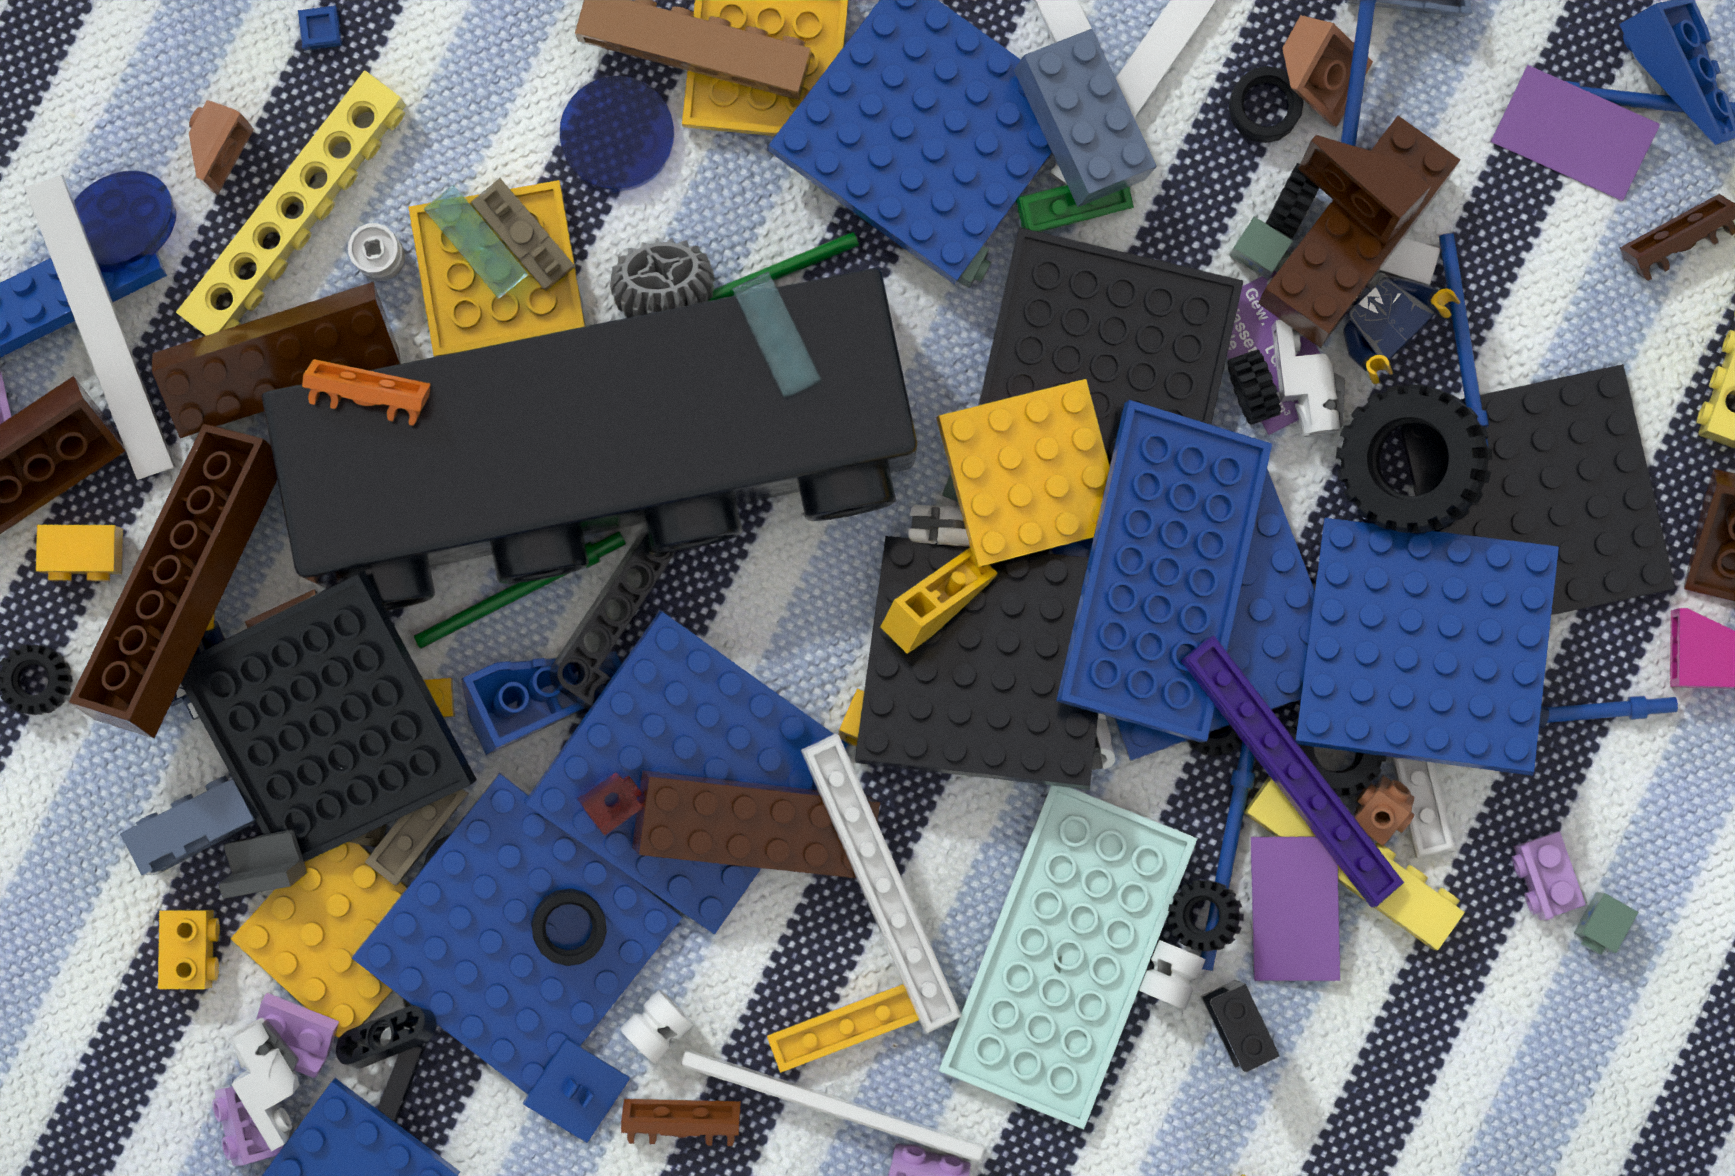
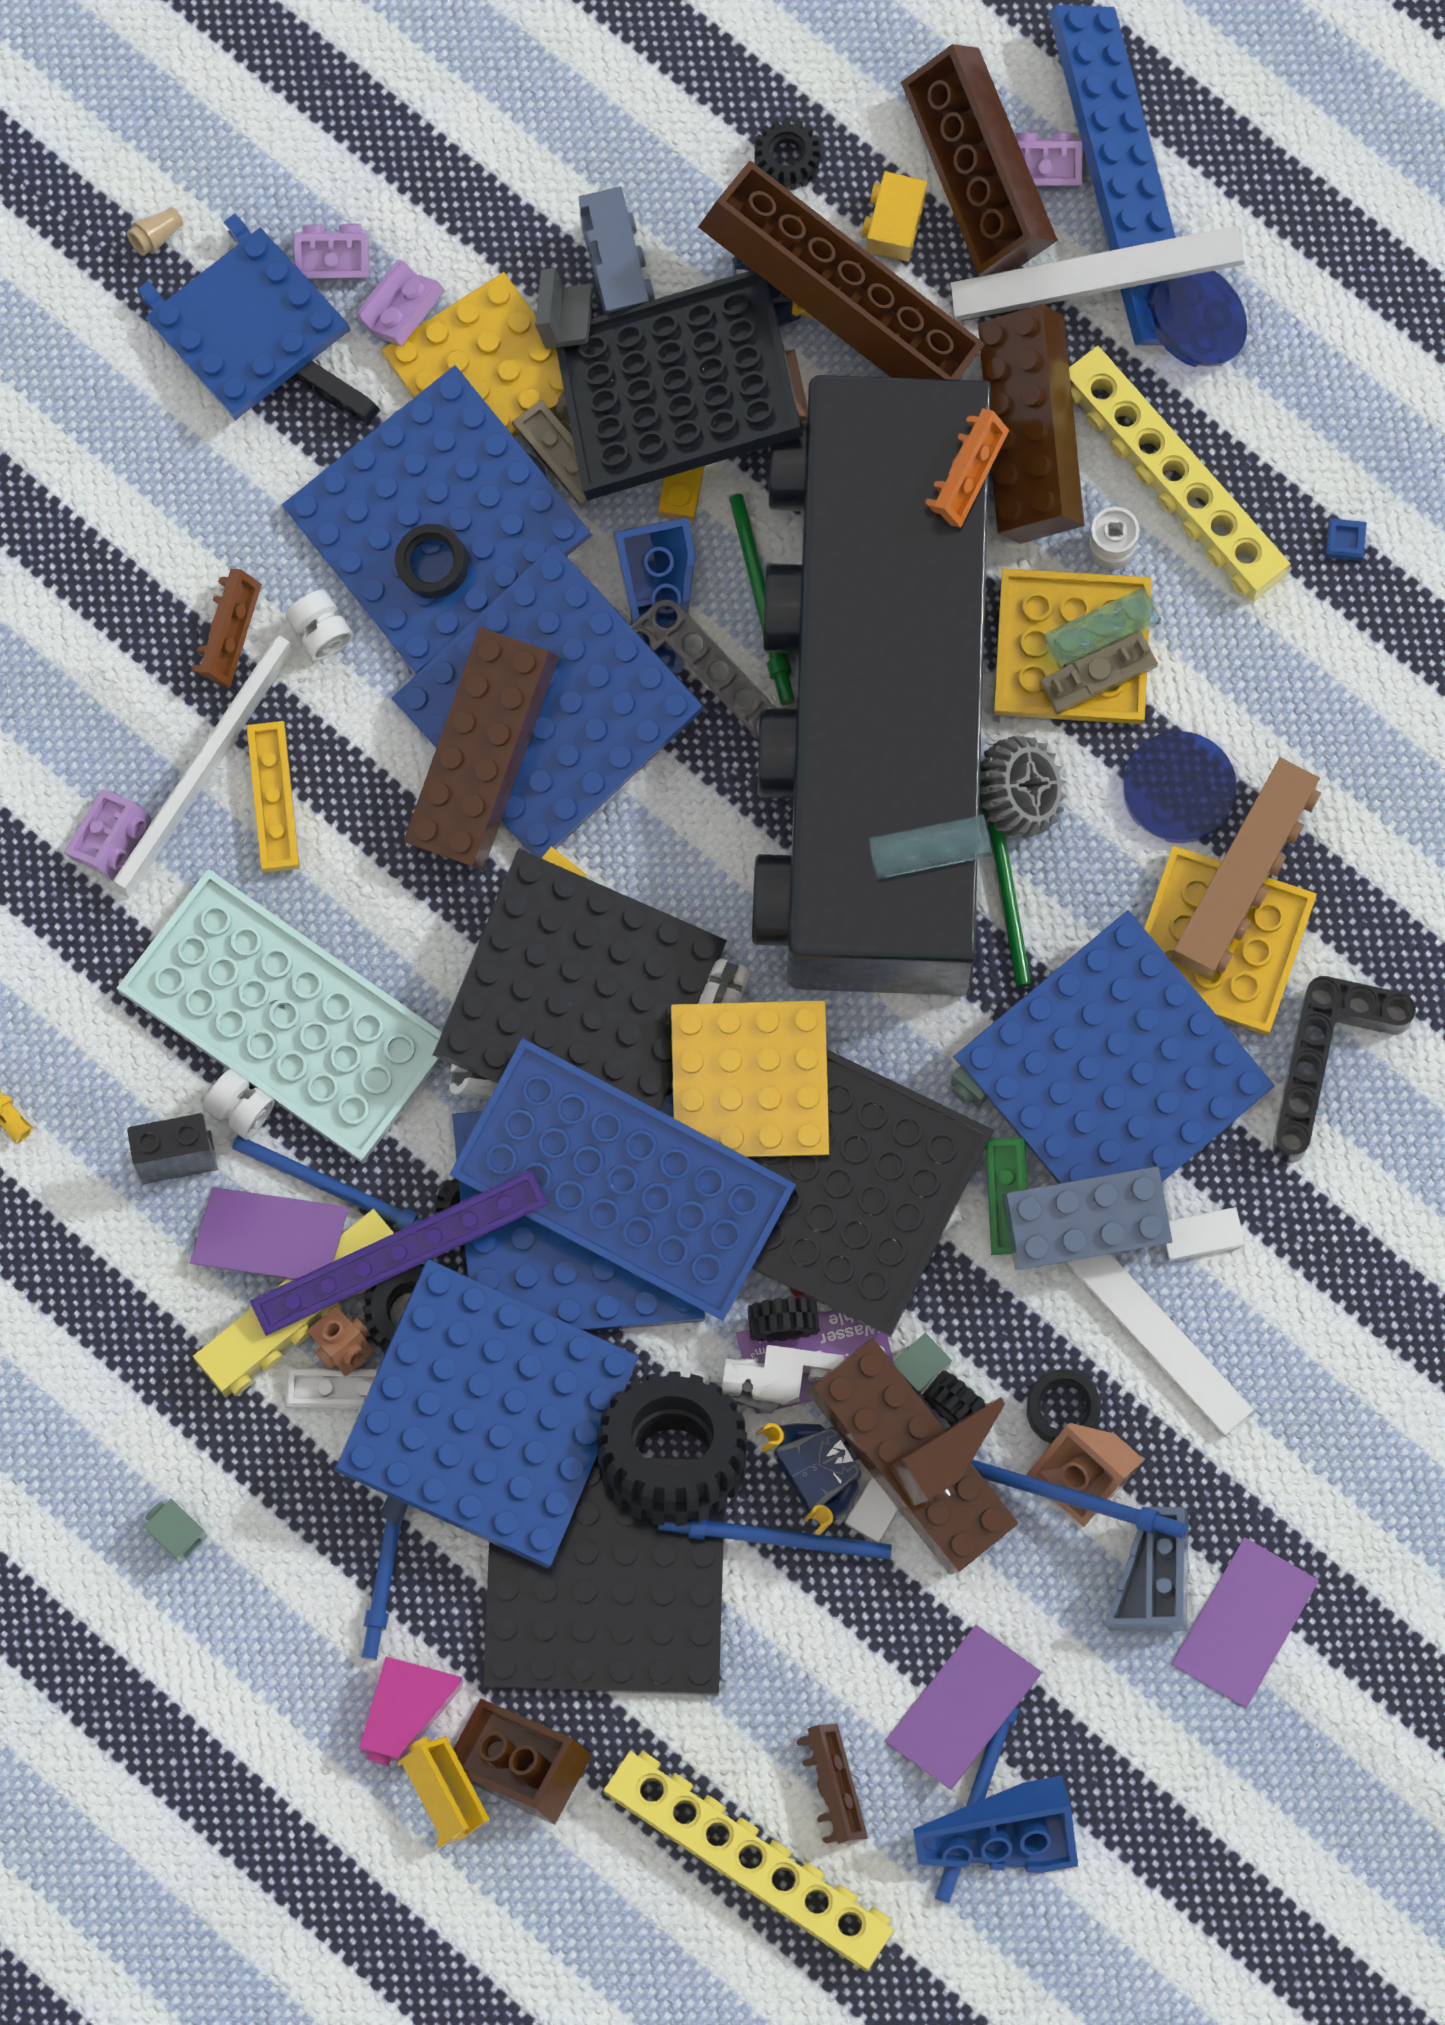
camera: 105 degrees right, 10 degrees down
(187, 949) = (503, 231): yellow brick -> none
(216, 142) = (1250, 417): nougat slope -> none
(267, 1080) = (363, 267): white plate -> none
(401, 1039) = (383, 372): black beam -> none
(576, 1090) = (281, 542): blue piece -> none
(609, 817) = (526, 607): clear red brick -> none
(881, 883) = (396, 848): white tile -> none
(935, 600) = (648, 957): yellow slope -> none
(1228, 915) = (291, 1130): black tyre -> none
(1548, 876) = (235, 1488): lavender bracket -> none

